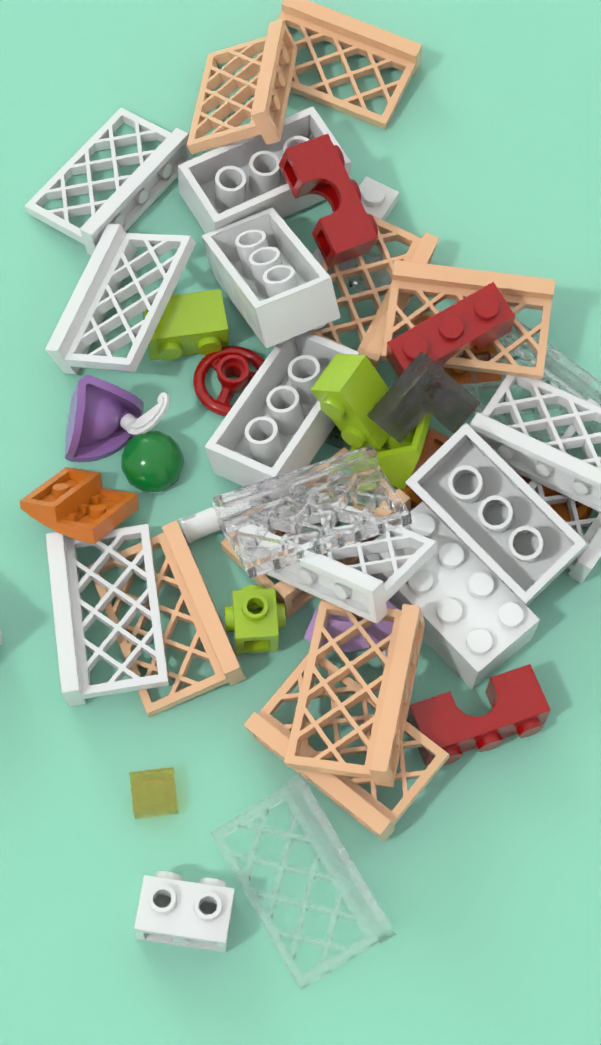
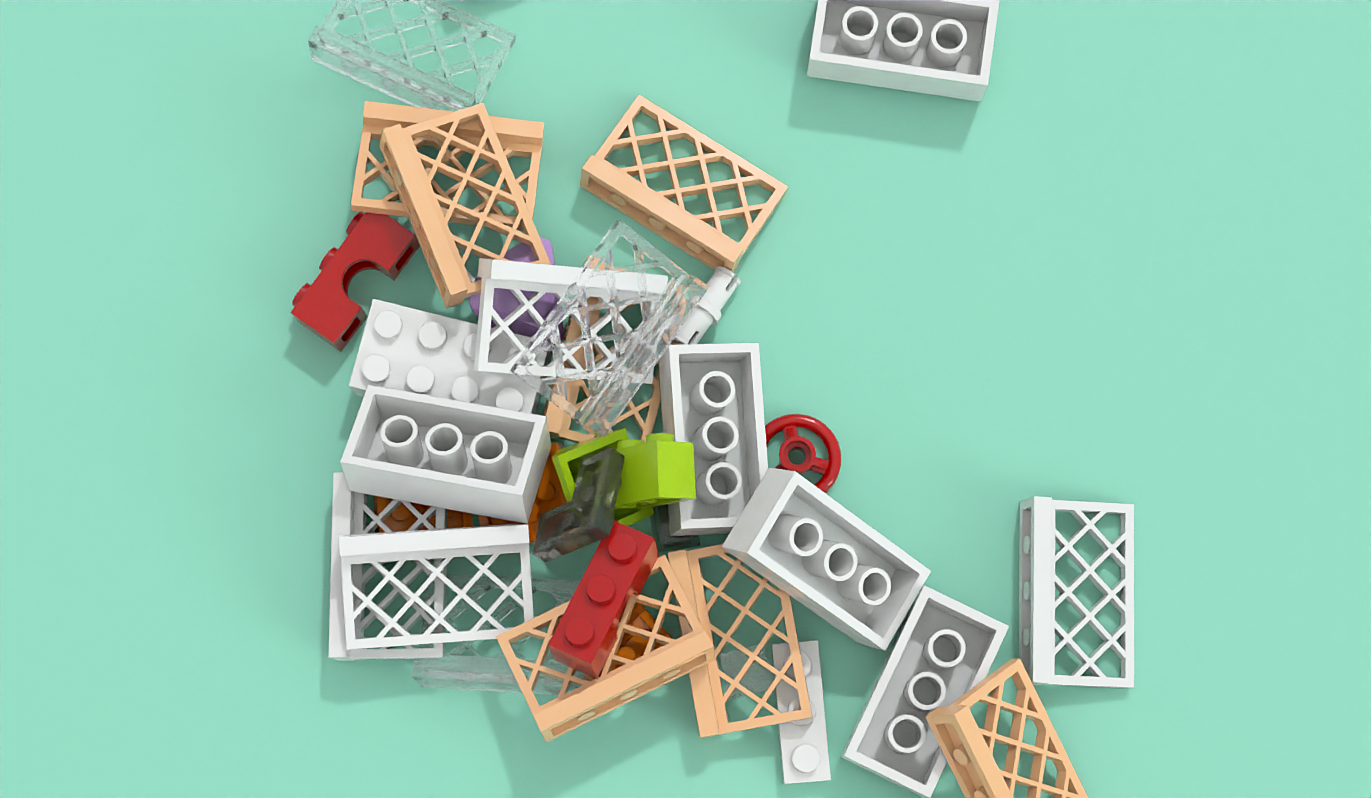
camera: 150 degrees right, 15 degrees up
(71, 625) = (767, 127): white fence -> none
(78, 505) = (832, 225): orange slope -> none
(99, 293) = (982, 444): white fence -> none
(105, 419) = (874, 329): medium lavender hat -> none
(152, 461) = (807, 324): green hair -> none
(153, 793) = (585, 35): clear yellow tile -> none
(190, 326) = (879, 475): lime brick -> none
(255, 619) = (596, 214): lime brick -> none
(320, 170) = (791, 665): red arch -> none

